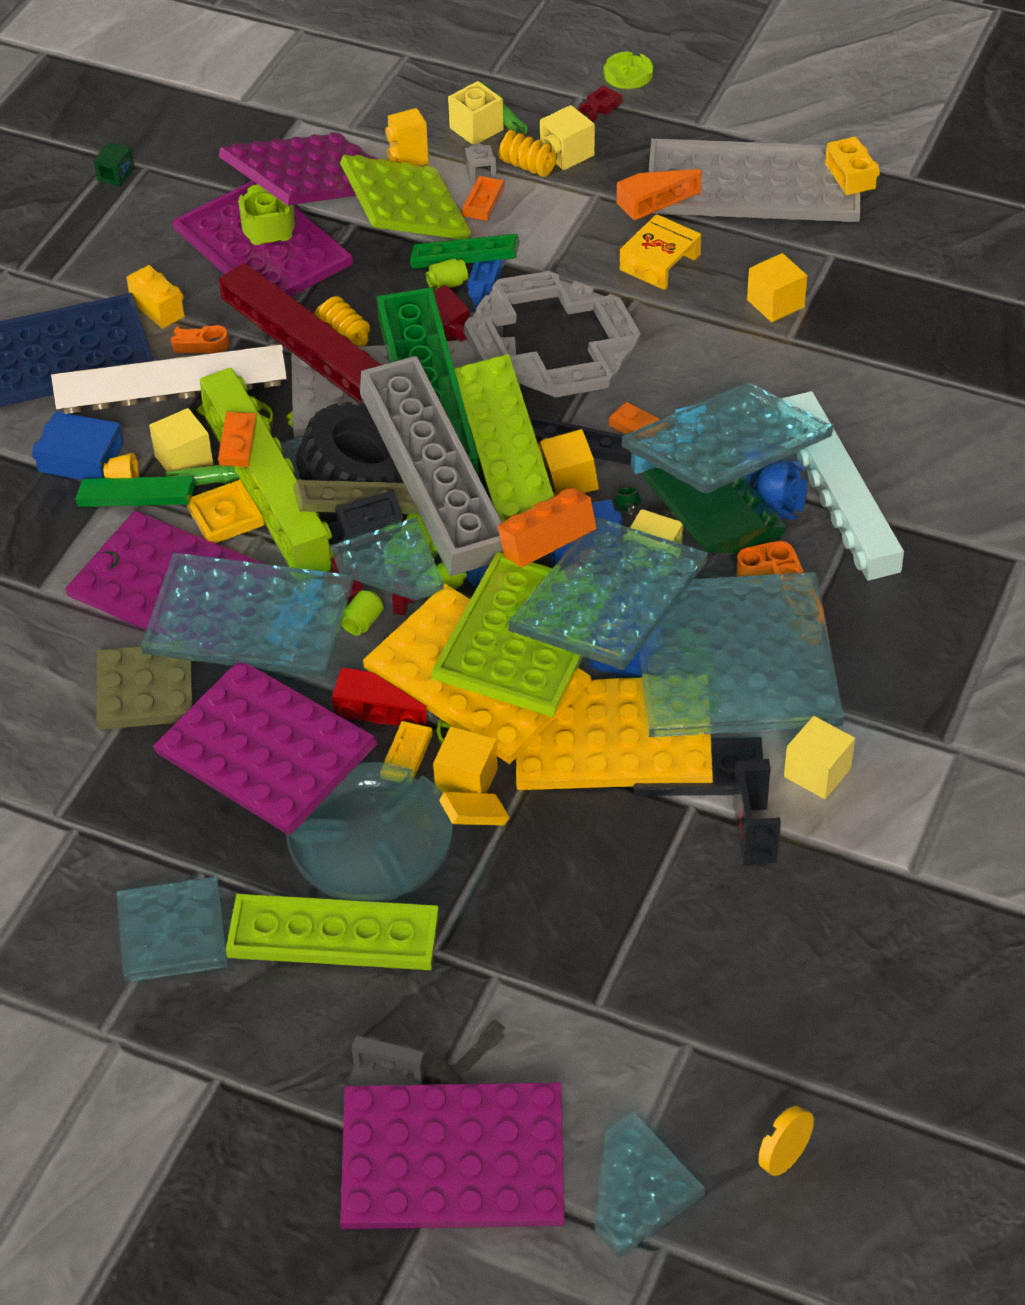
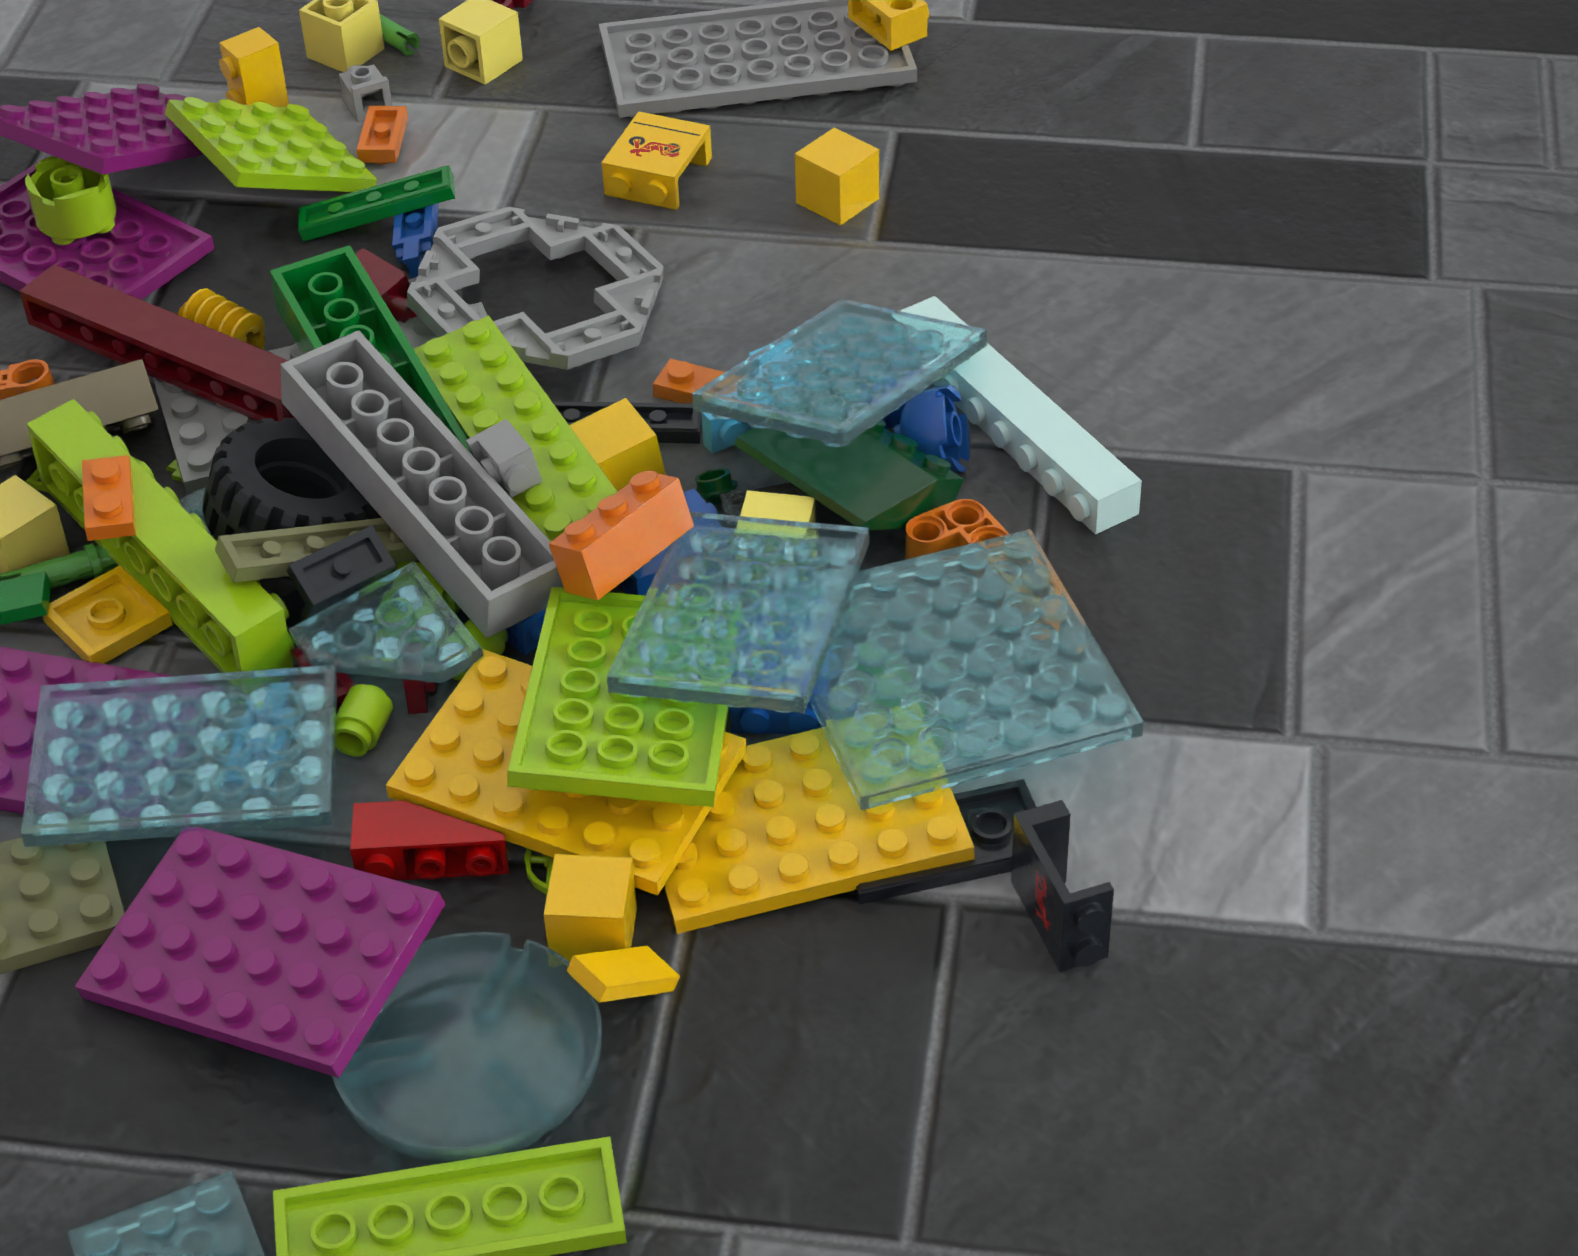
camera: 15 degrees left, 5 degrees down
(409, 746) = (491, 899): yellow plate -> none
(447, 273) = (360, 232): lime brick -> none
(487, 460) = (505, 457): none -> light grey brick
(527, 153) = (429, 69): yellow piece -> none
(656, 190) = (629, 82): orange slope -> none
(819, 757) = (1123, 788): light yellow head -> none

